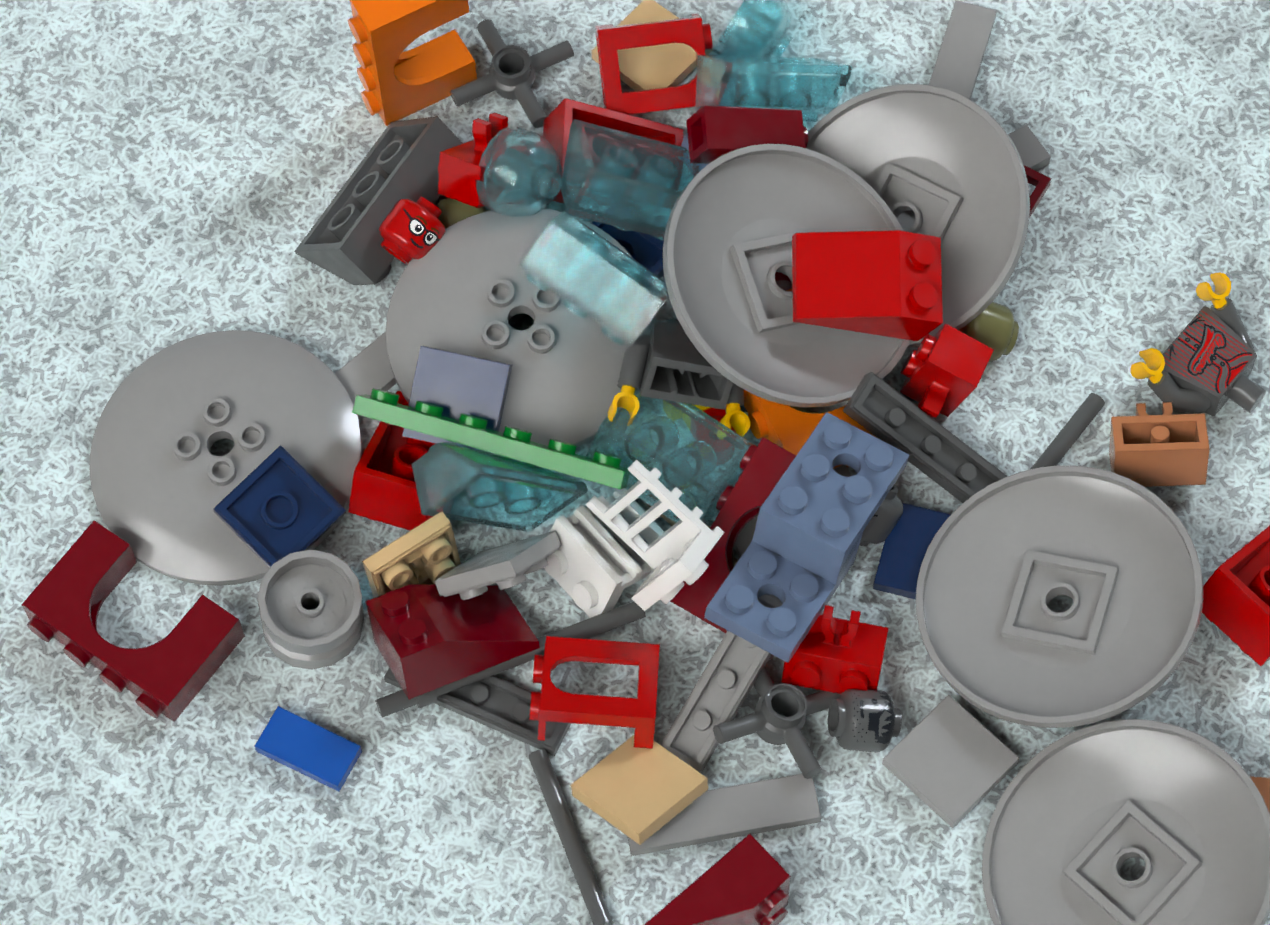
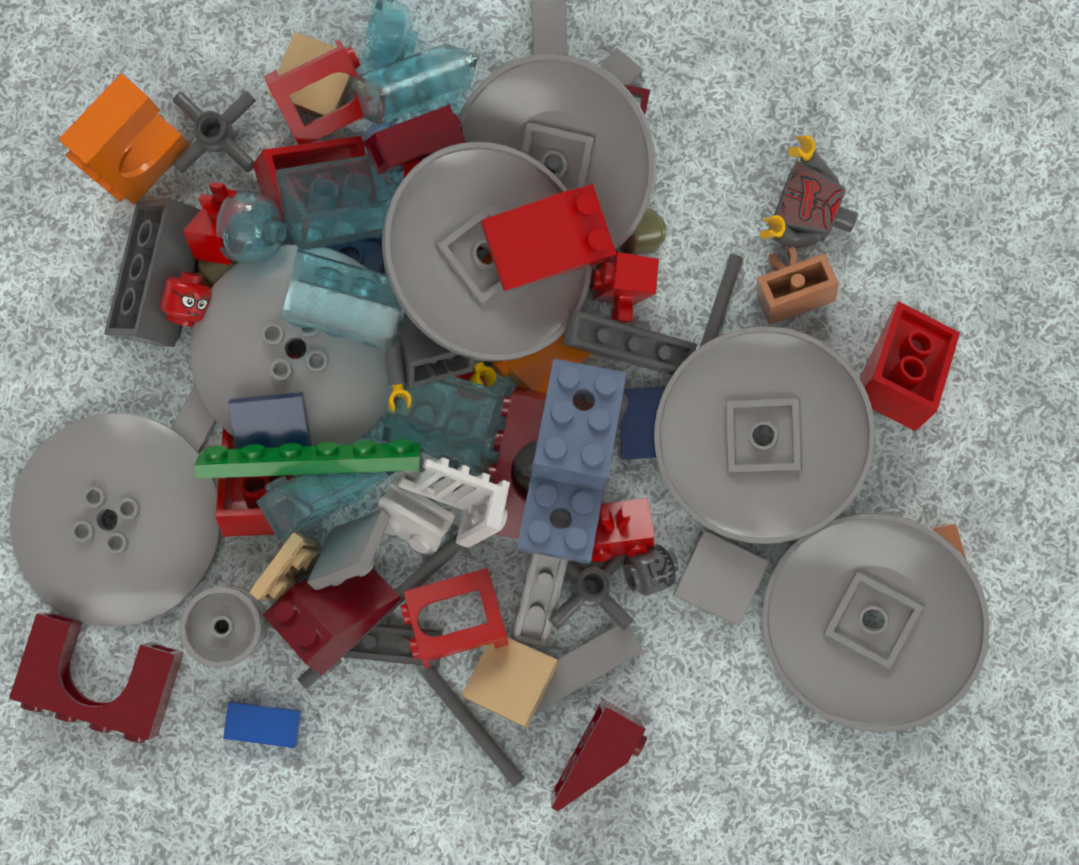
camera: 20 degrees left, 20 degrees up
(279, 508) = (171, 558): dark blue tile -> none

